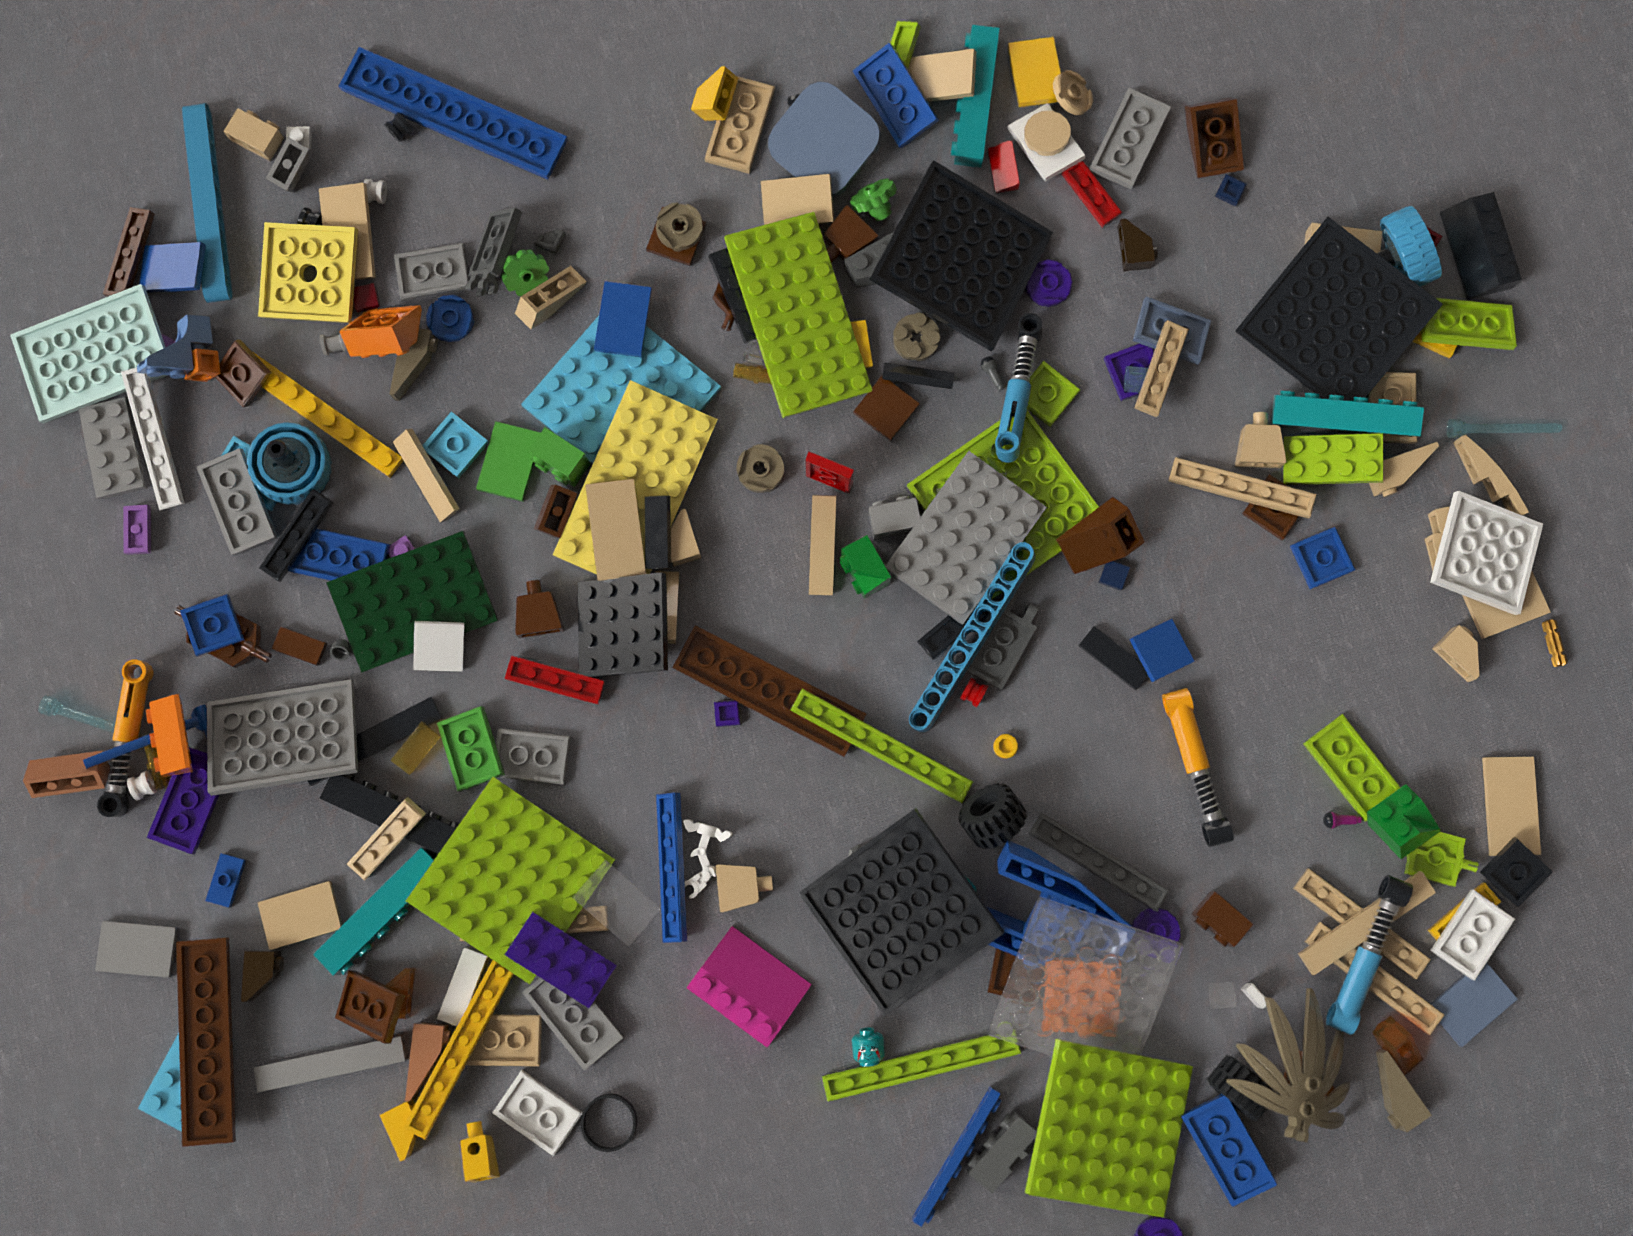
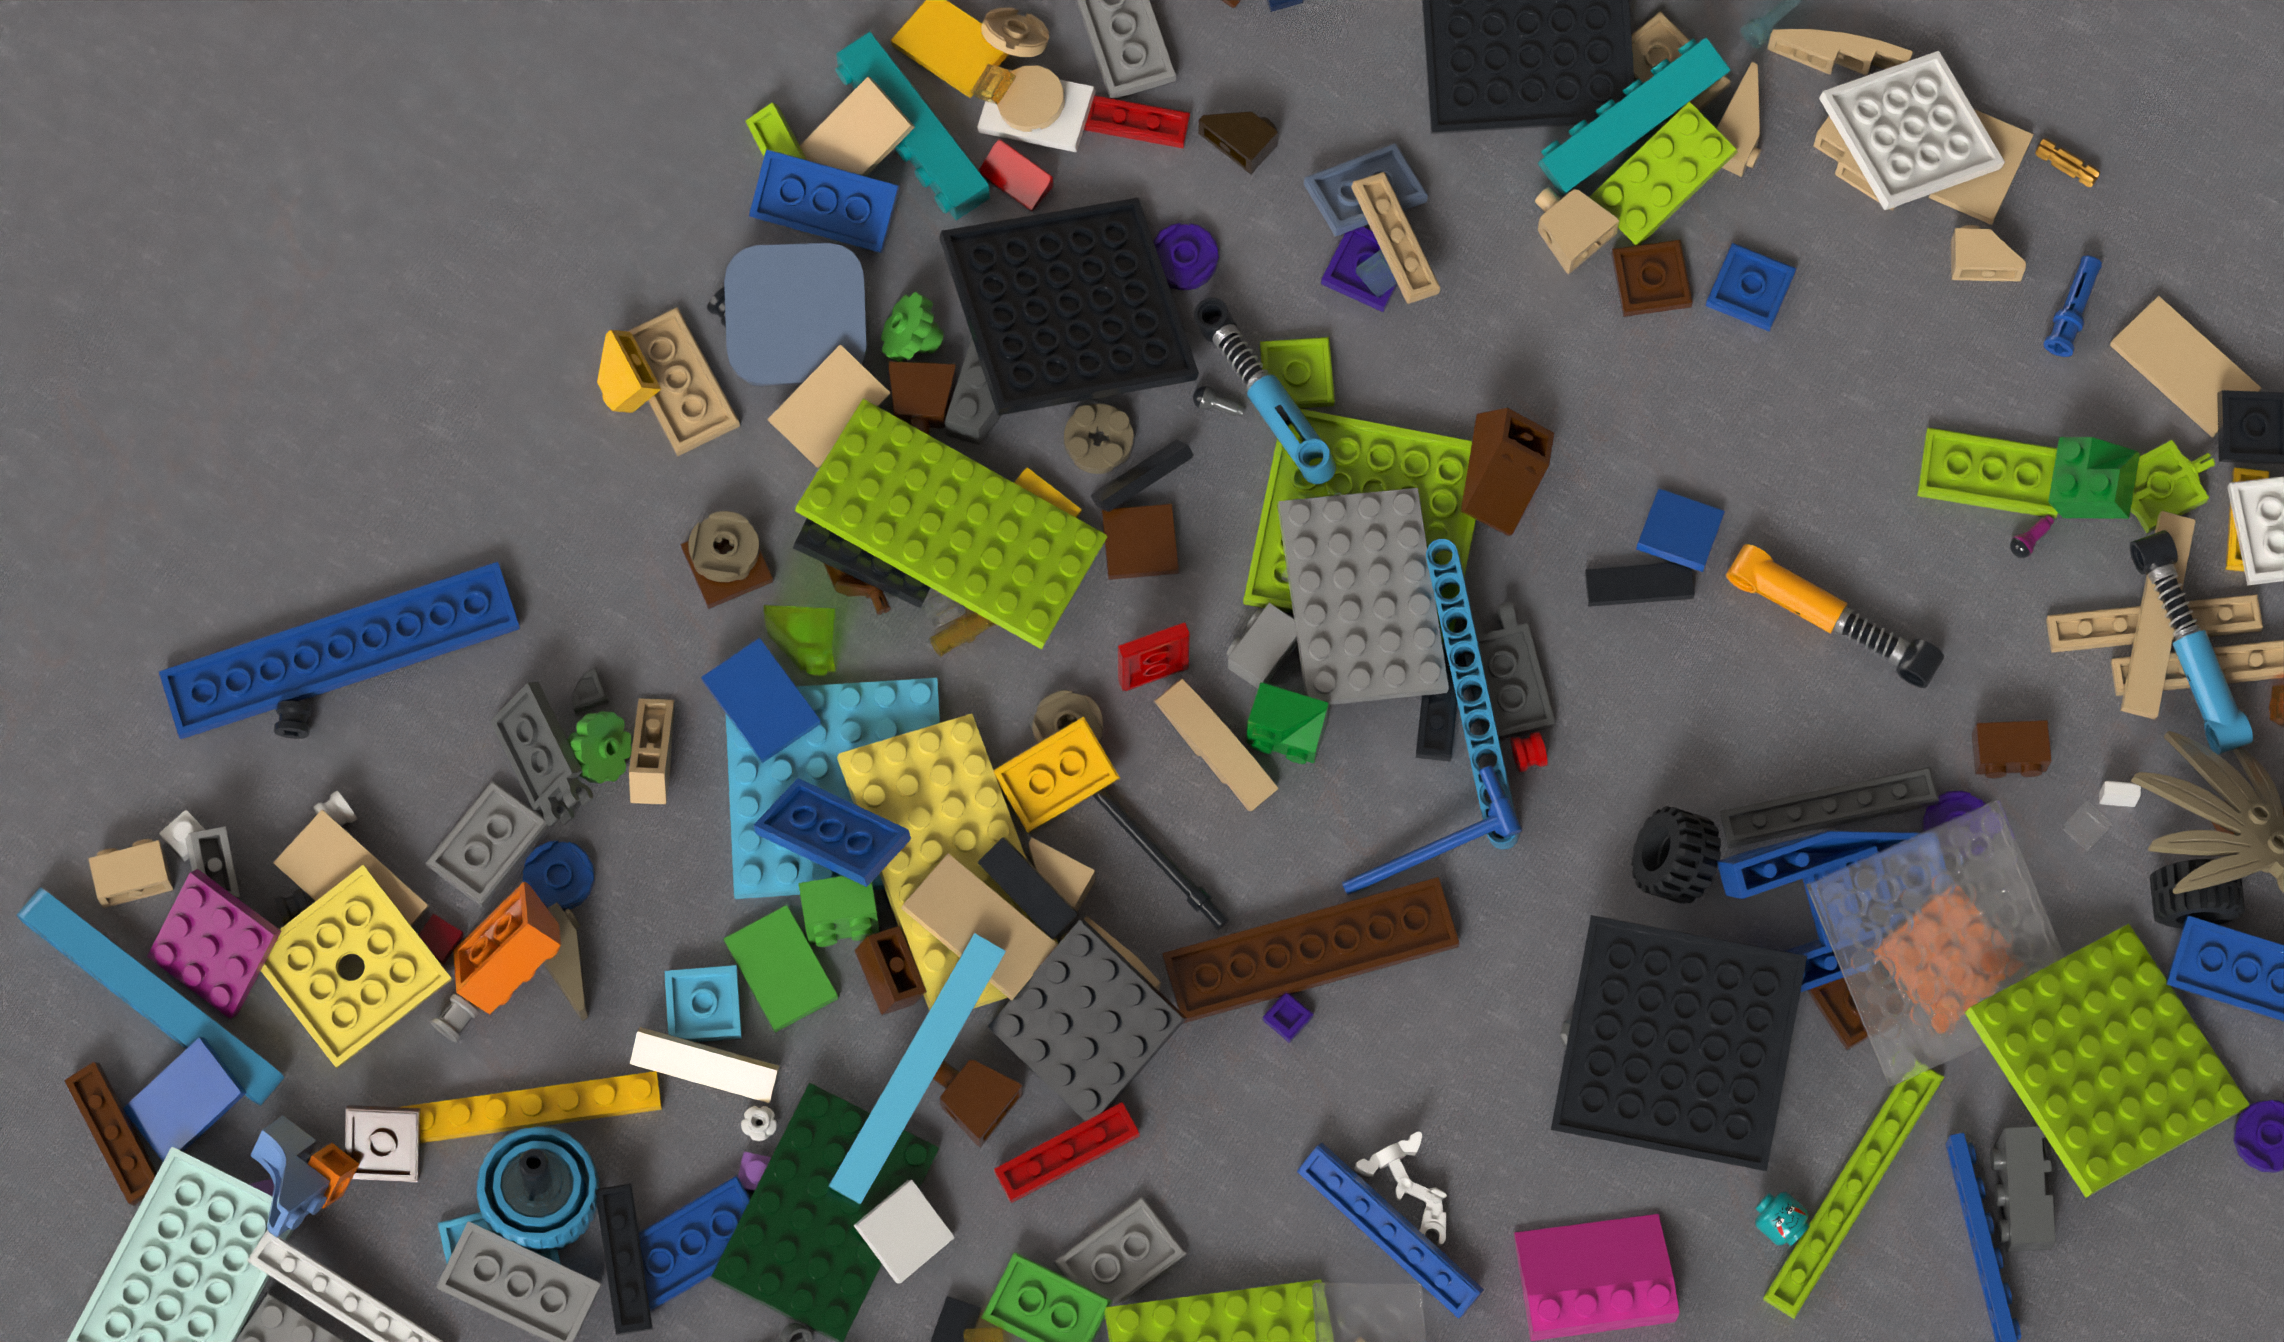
camera: 45 degrees left, 10 degrees down
(253, 202) = (213, 943): none -> magenta plate
(430, 532) = (761, 1132): none -> white plate
(516, 572) = (917, 1069): none -> medium azure tile
(587, 417) = (832, 832): none -> blue plate
(675, 308) = (805, 636): none -> clear neon green slope
(729, 487) = (1056, 774): none -> yellow tile
(740, 886) = (1482, 1180): tan torso -> none
(741, 612) = (1197, 897): none -> black bar
(881, 746) = (1487, 895): lime tile -> none
(922, 715) = (1501, 820): none -> blue bar
(1005, 746) = (1616, 779): yellow tile -> none
(1034, 109) = (993, 84): none -> clear yellow tile
(1114, 575) = (1554, 498): dark blue tile -> none
(1242, 487) = (1598, 288): tan tile -> none
(1471, 728) = (2069, 319): none -> blue pin

